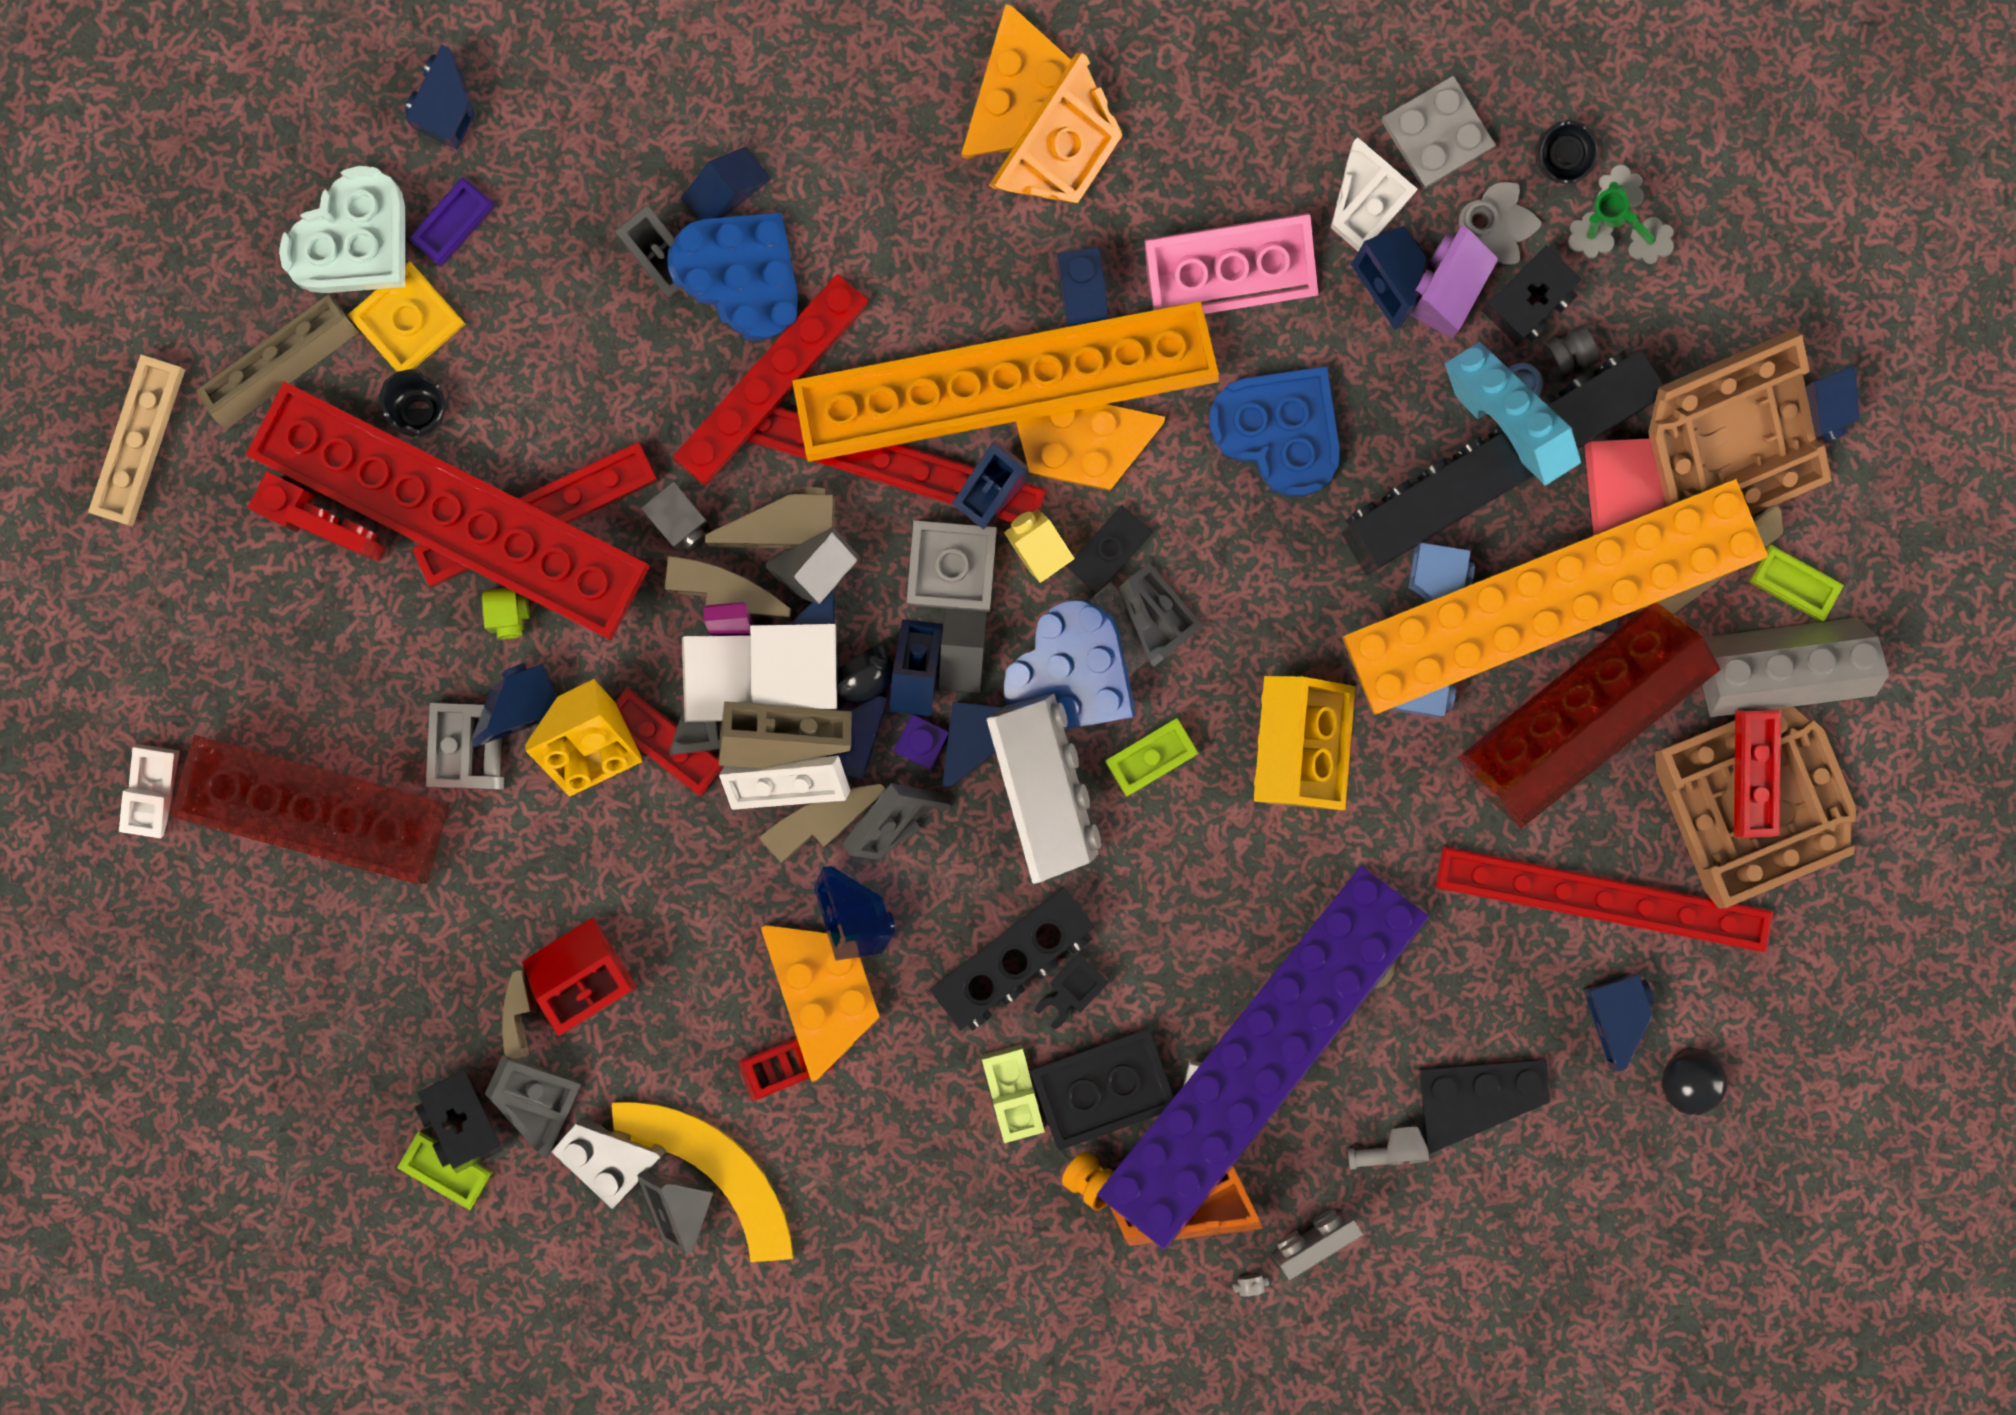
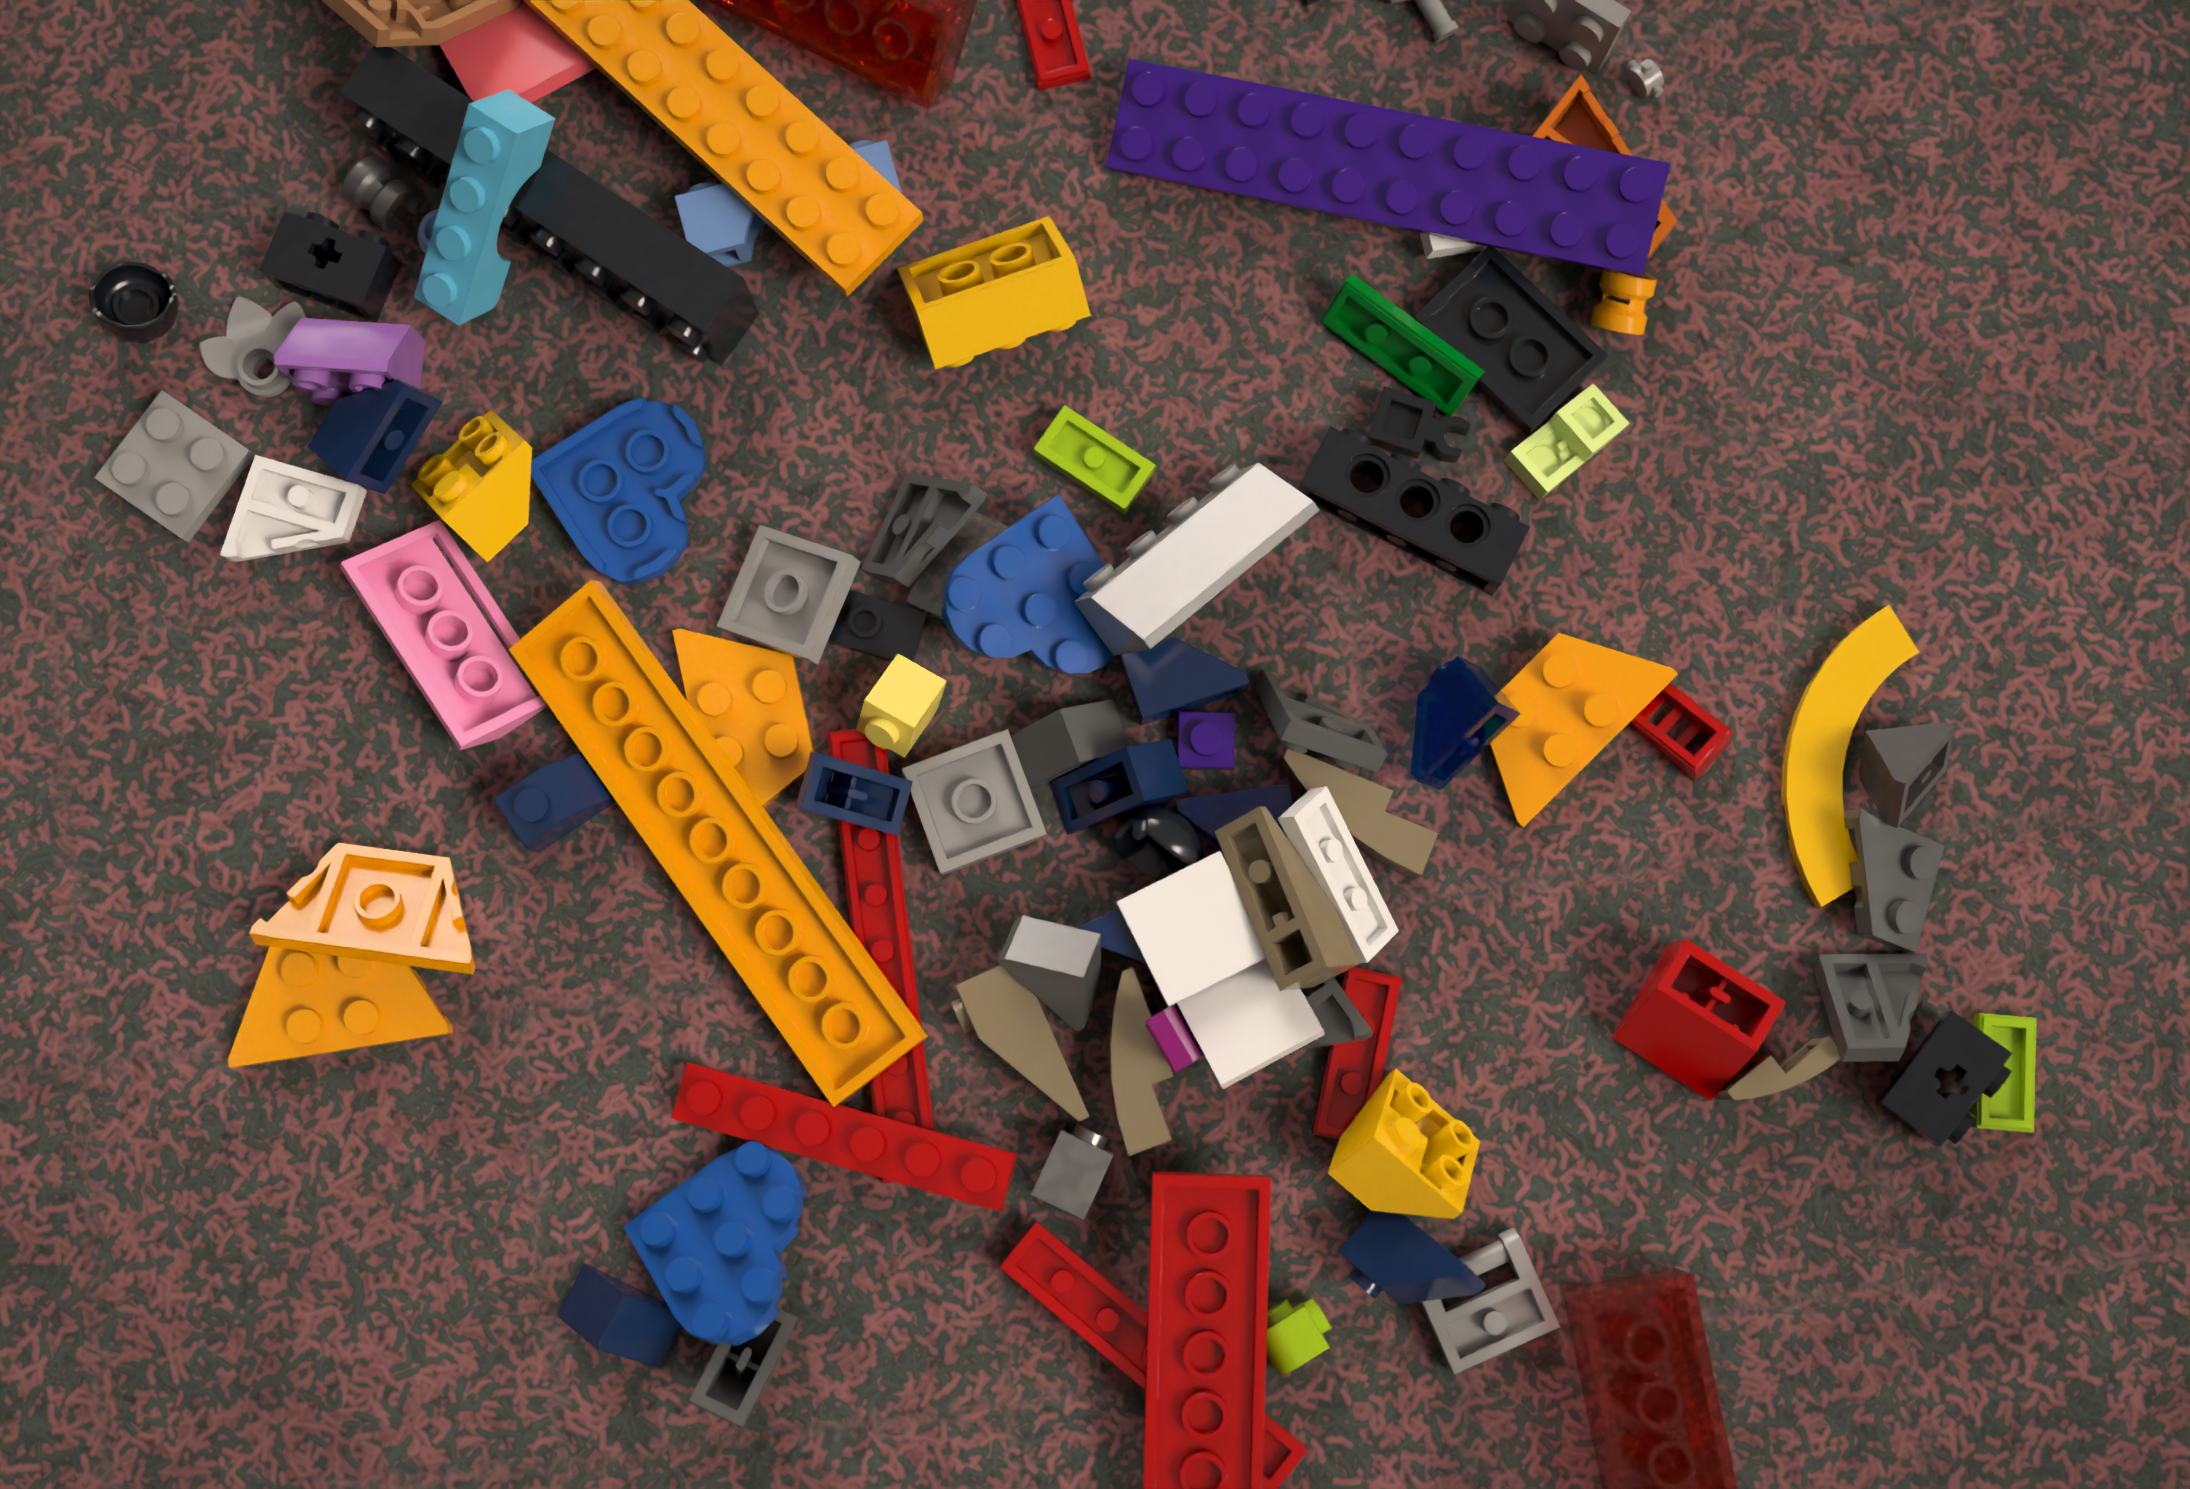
camera: 115 degrees left, 5 degrees down
(1133, 1009) = (1401, 345): none -> green tile
(1151, 504) = (788, 594): none -> light grey plate
(1326, 330) = (481, 484): none -> yellow slope
(1613, 209) = (178, 204): light grey plant -> none

